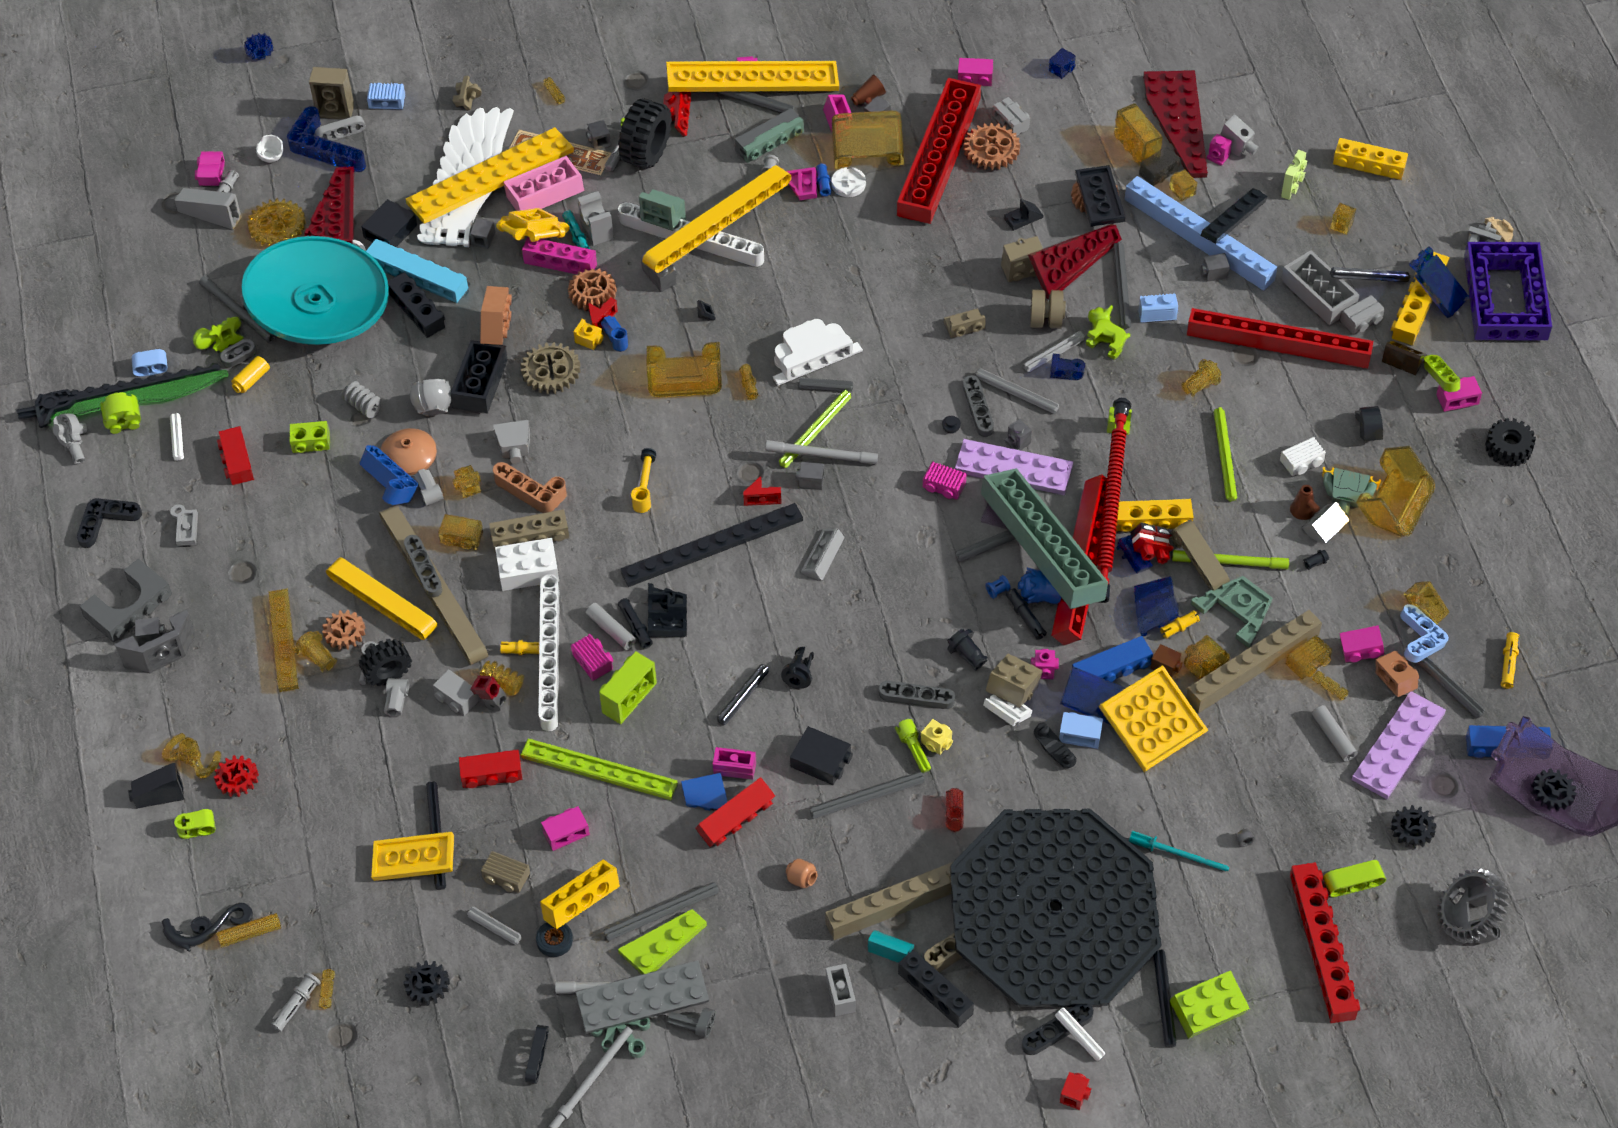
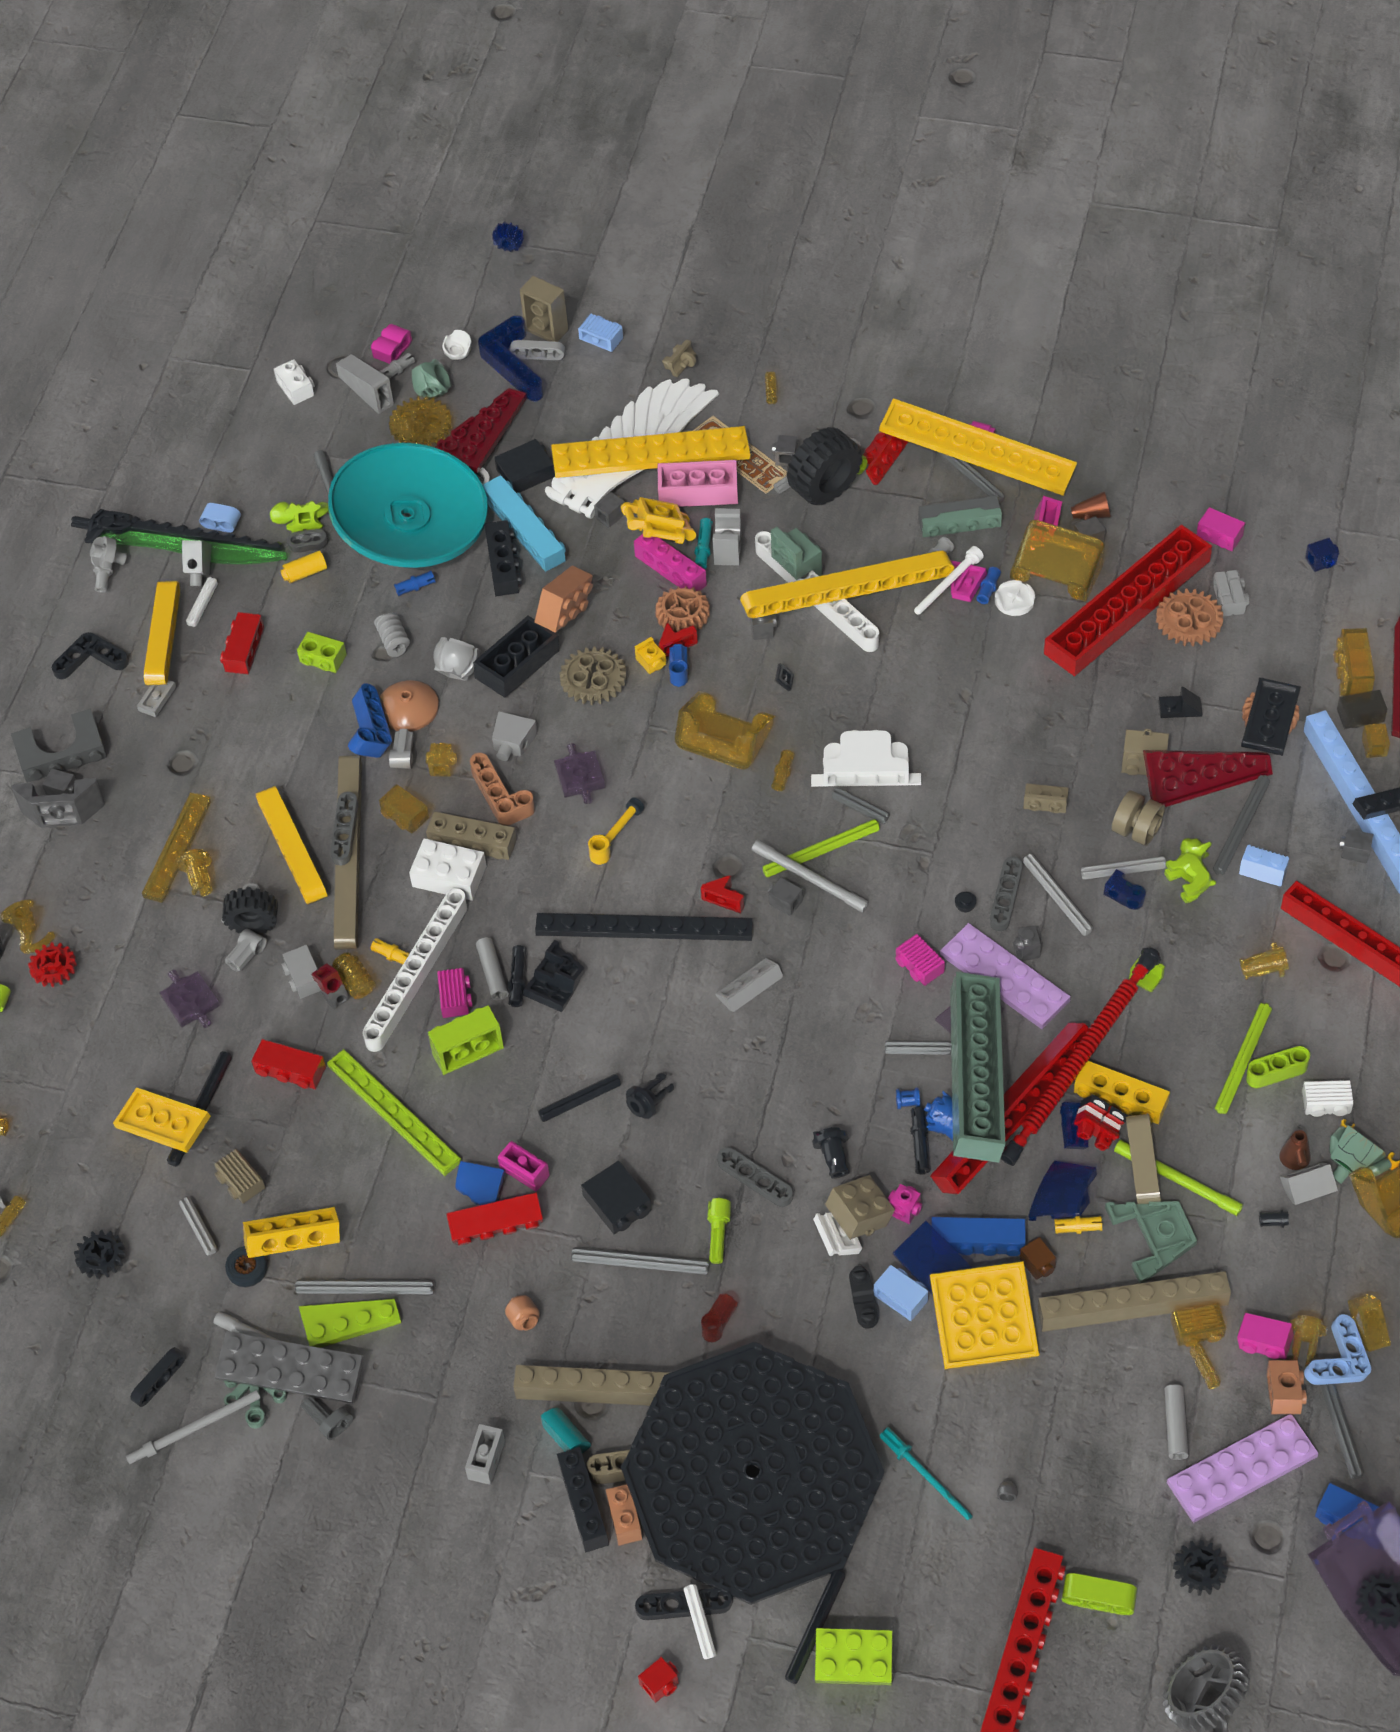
camera: 30 degrees right, 0 degrees up
(120, 412) = (161, 556): lime brick -> none
(144, 229) = (294, 381): none -> white brick
(152, 396) = (196, 553): none -> light grey torso
(161, 474) = (162, 633): none -> yellow beam
(265, 184) = (431, 379): none -> sand green piece
(334, 630) = (237, 861): nougat gear -> none
(353, 352) = (414, 583): none -> blue pin
(372, 754) = (189, 999): none -> clear purple plate
(565, 828) = (322, 1158): dark pink brick -> none
(587, 448) = (579, 773): none -> clear purple plate
(800, 161) = (973, 556): none -> white piece
(936, 737) = (744, 1231): light yellow brick -> none
(974, 985) = (623, 1515): none -> nougat brick
(1205, 657) = (1079, 1272): clear yellow brick -> none
(1254, 449) = (1285, 1059): none -> lime beam
(1390, 626) = (1307, 1330): none -> clear yellow piece

